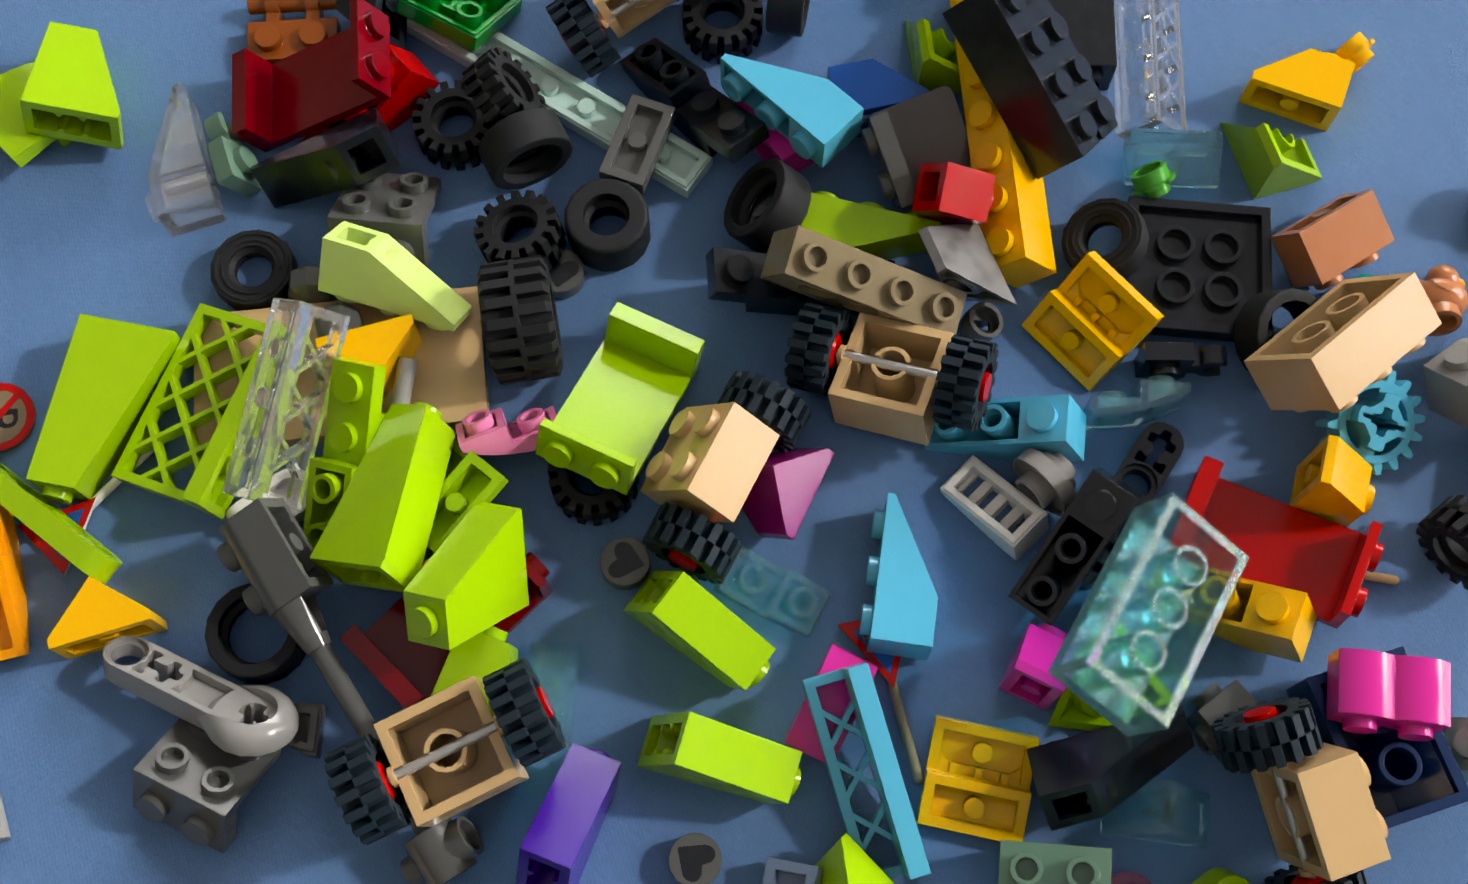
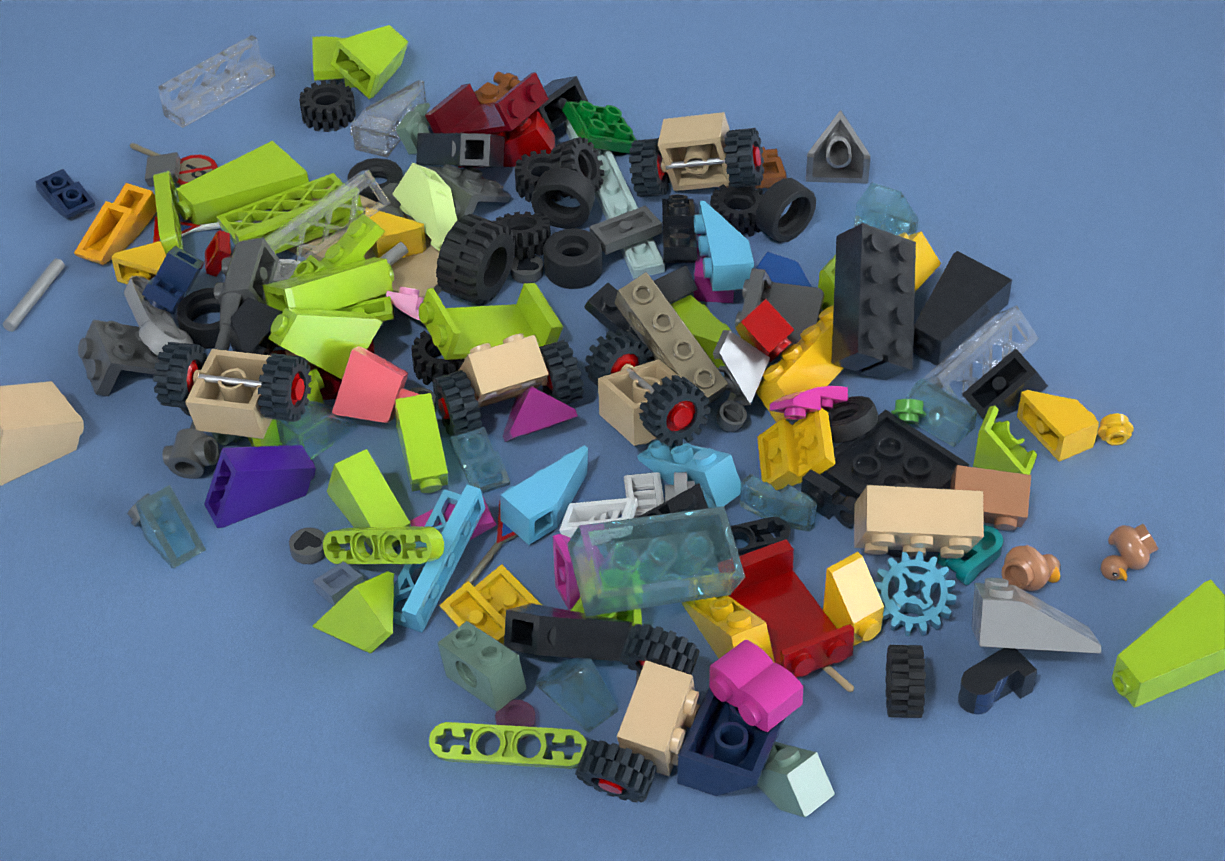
camera: 40 degrees right, 25 degrees down
(64, 179) = (327, 106): none -> black tyre
(170, 530) = (216, 251): none -> red tile
(177, 633) = (173, 280): none -> dark blue brick
(371, 642) = (252, 327): none -> black slope
(579, 598) = (370, 387): none -> coral torso
(868, 799) = (382, 545): none -> lime beam
(957, 599) = (597, 512): none -> white slope
(1067, 252) = (799, 403): none -> dark pink slope
(1219, 79) = (1004, 385): none -> black slope

